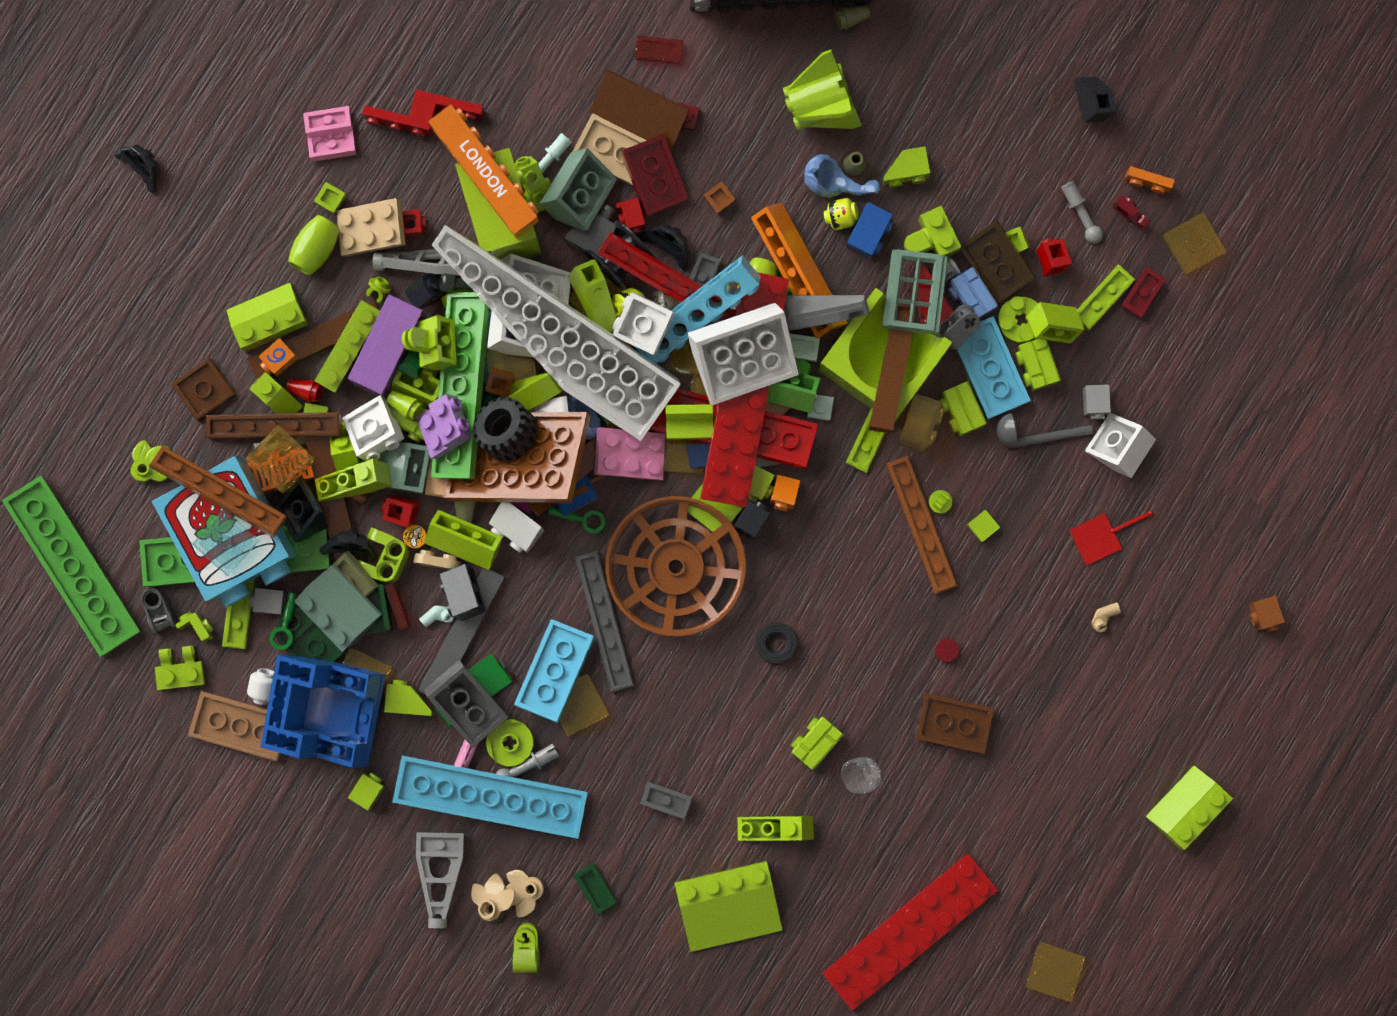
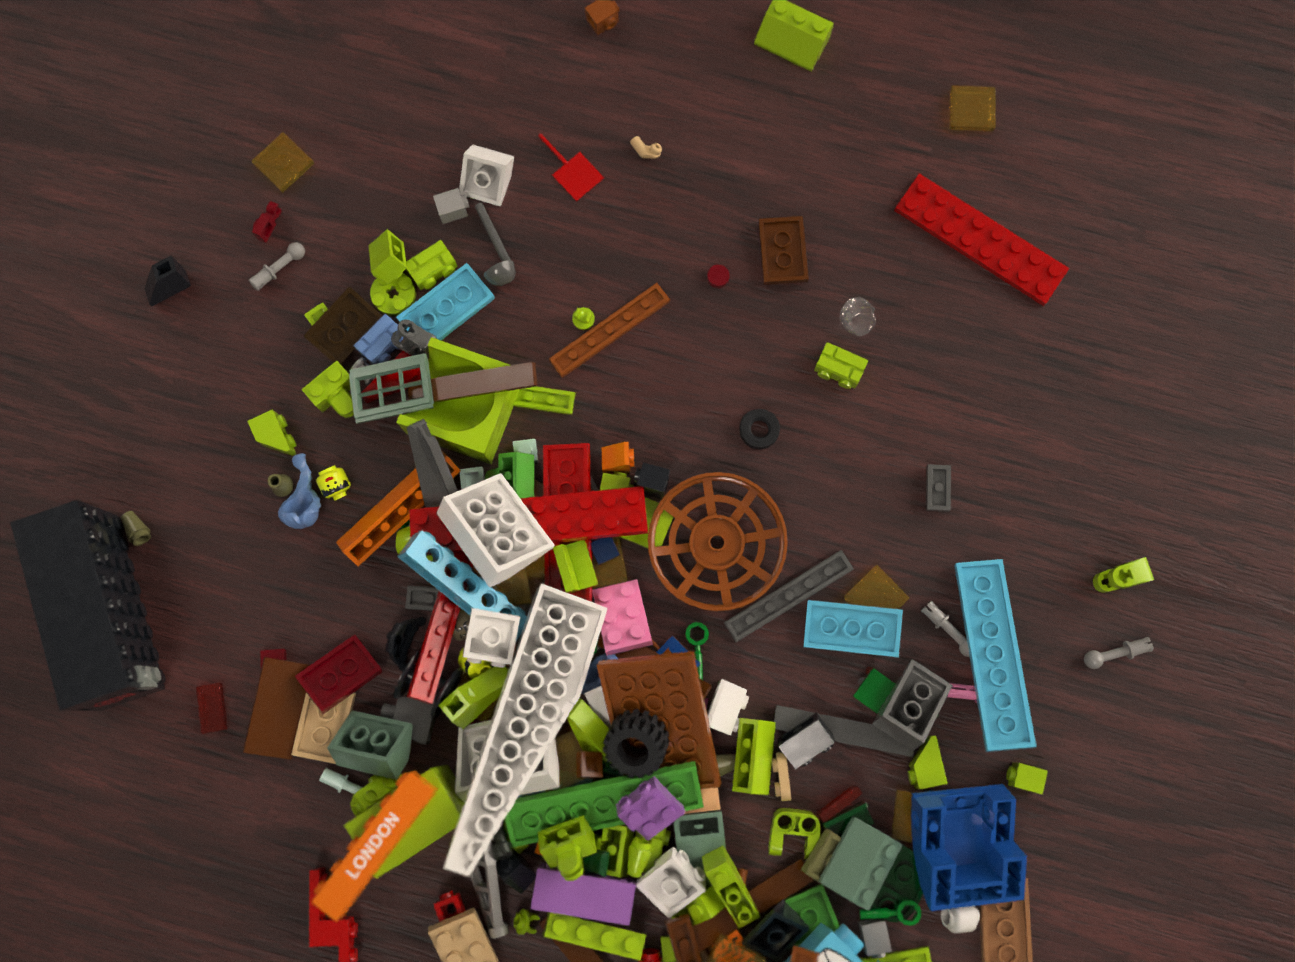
camera: 105 degrees left, 5 degrees down
(349, 541) = (791, 871): black piece -> none
(391, 511) = (750, 832): red brick -> none
(414, 536) = (764, 807): tile -> none
(436, 613) = (831, 762): light aqua arm -> none
(439, 845) = (1053, 690): light grey plate -> none
(455, 935) = (1095, 659): none -> light grey pin
(492, 894) = (1081, 624): tan plate -> none
(521, 750) = (937, 638): lime plate -> none
(524, 900) = (1071, 600): tan plate -> none
(595, 889) = (1041, 530): dark green tile -> none
(631, 215) = (384, 685): red brick -> none
(719, 198) = (346, 604): dark orange plate -> none
(728, 906) = (1013, 404): lime slope -> none
(775, 828) = (930, 380): lime slope -> none
(821, 96) = (220, 531): lime brick -> none
(869, 231) = (343, 451): blue brick -> none
(920, 422) = (515, 348): clear yellow brick -> none
(963, 409) = (491, 320): lime brick -> none
(983, 526) = (594, 275): lime tile -> none
(1053, 257) = (325, 278): red brick -> none
(1104, 296) = (350, 225): lime tile -> none
(1143, 292) = (339, 192): dark red plate -> none
(1144, 178) = (231, 215): orange plate -> none

